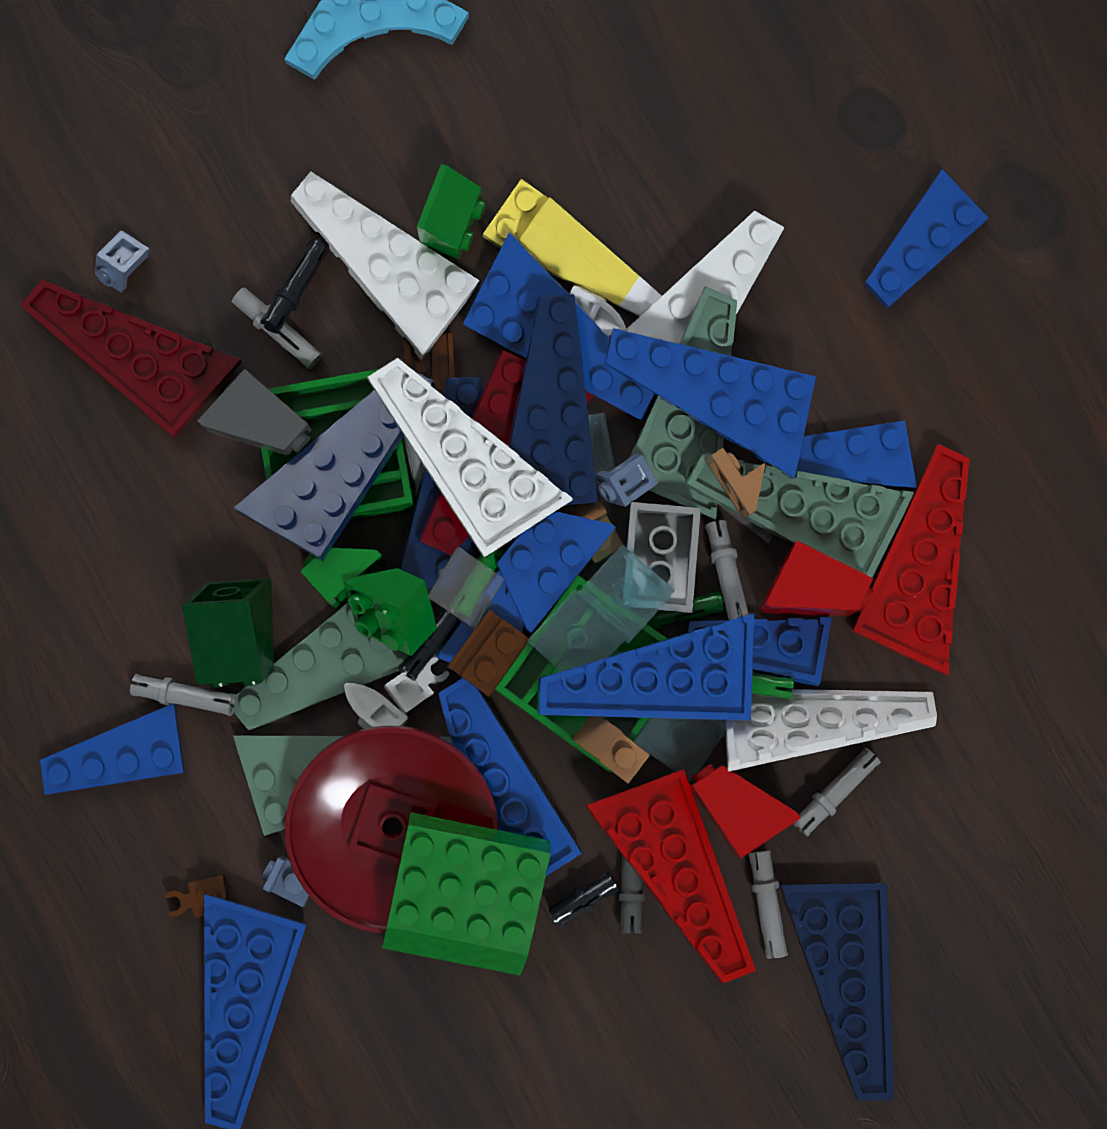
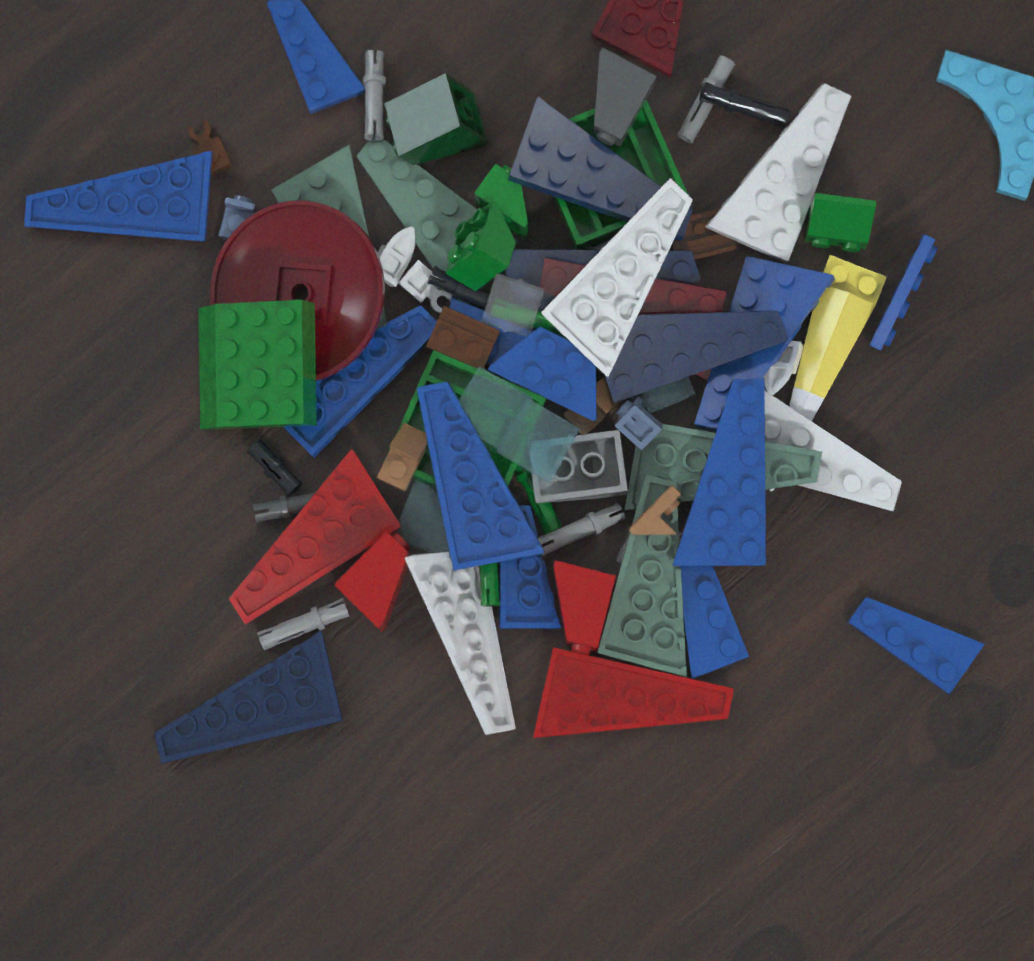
camera: 80 degrees right, 0 degrees up
(540, 163) = (911, 281): none -> blue wing
(826, 801) = (411, 662): light grey pin -> none

